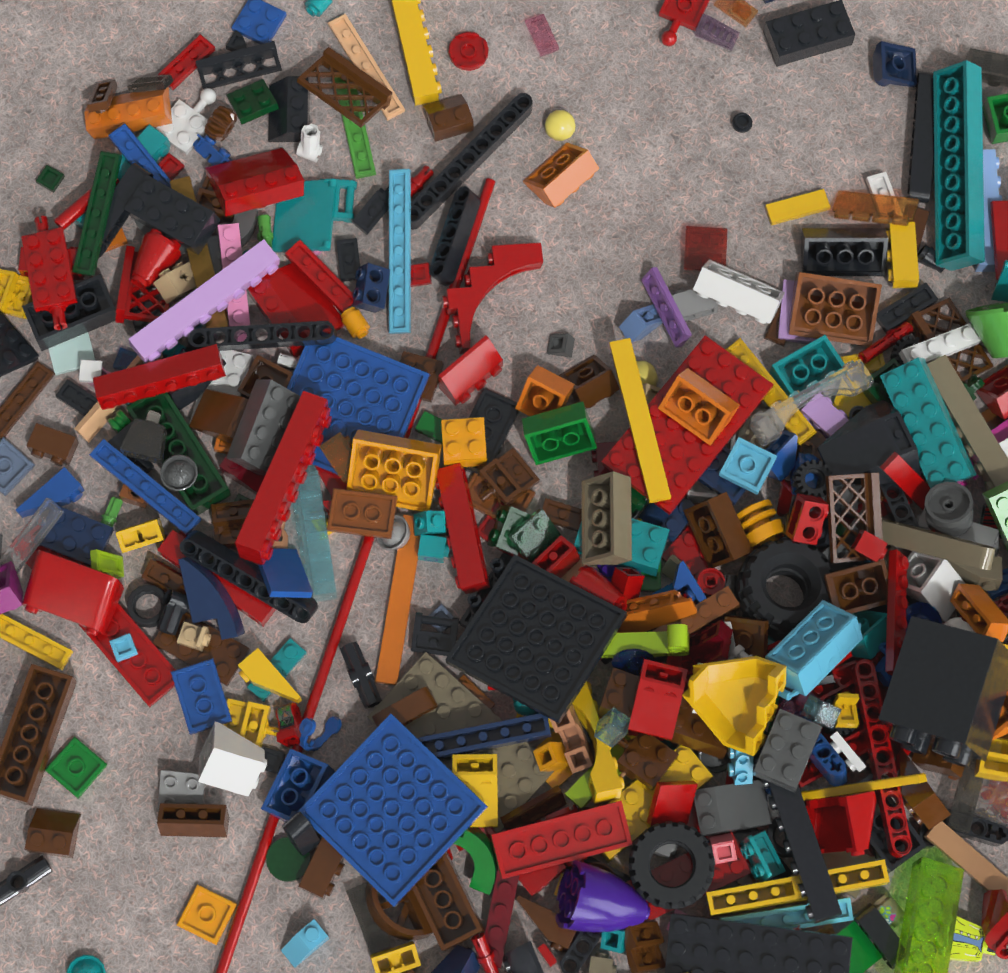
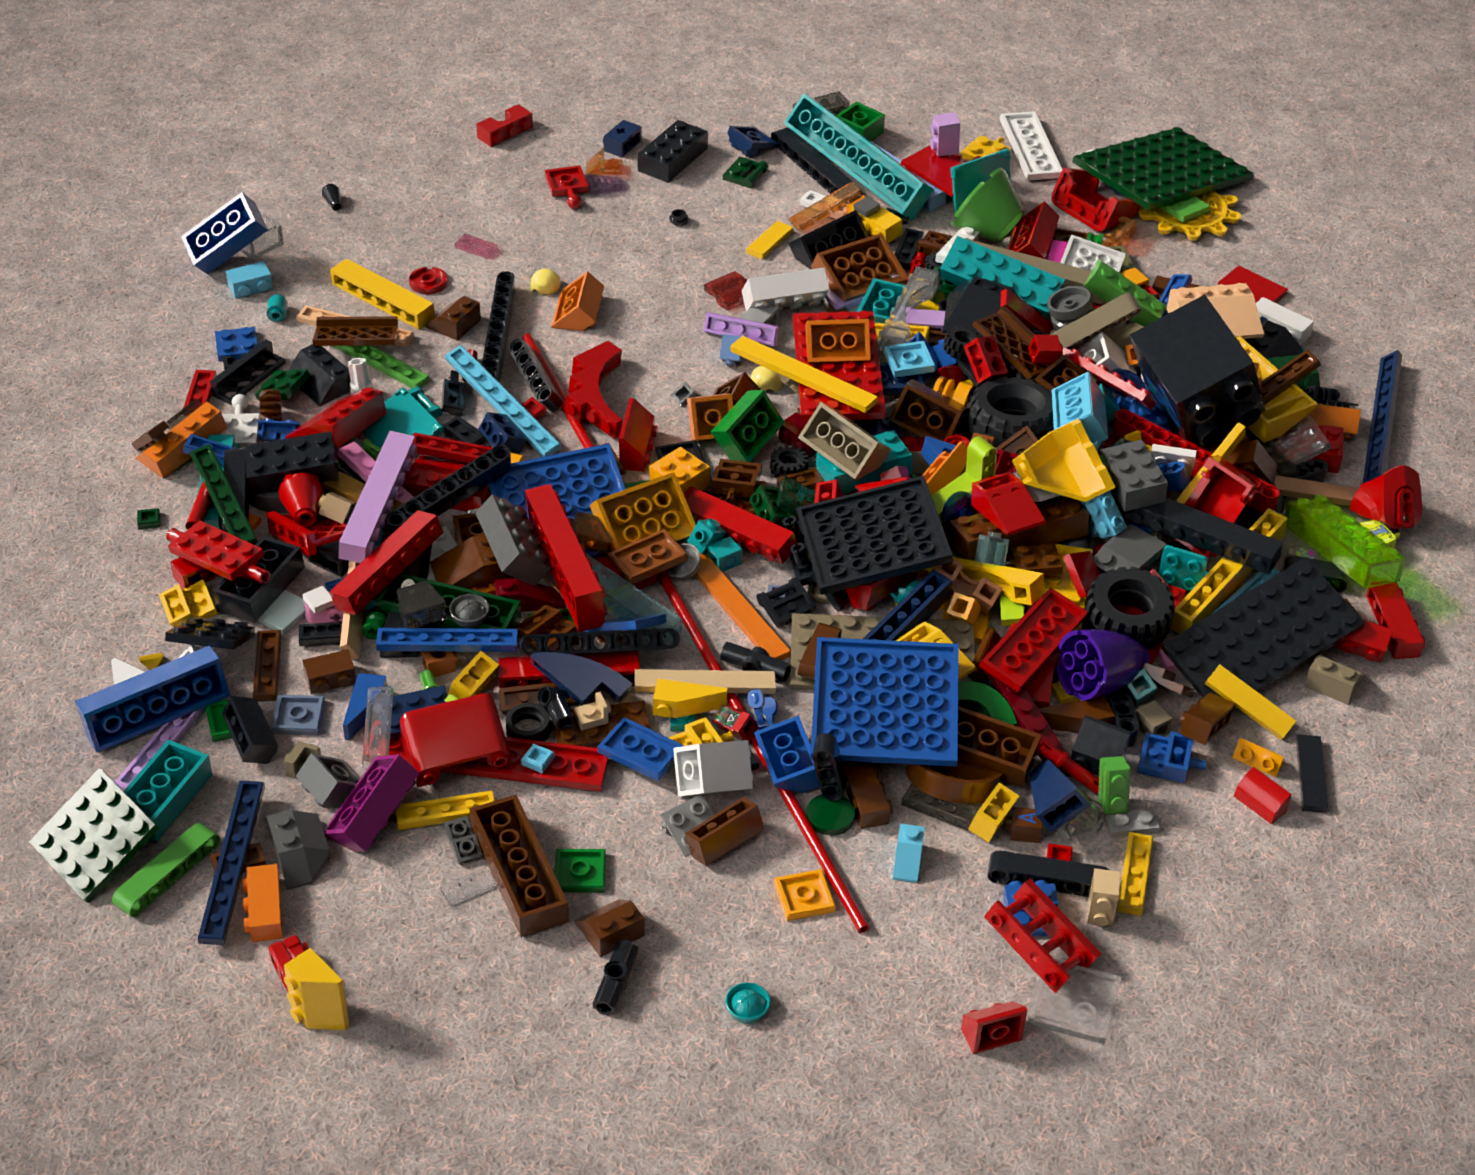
camera: 40 degrees left, 30 degrees down
(18, 675) = (462, 840): none -> dark grey slope
(302, 668) = (733, 680): none -> tan tile
(561, 479) = (790, 455): none -> black tyre
(851, 97) = (739, 170): none -> dark green plate
(901, 241) = (866, 206): none -> dark grey tile

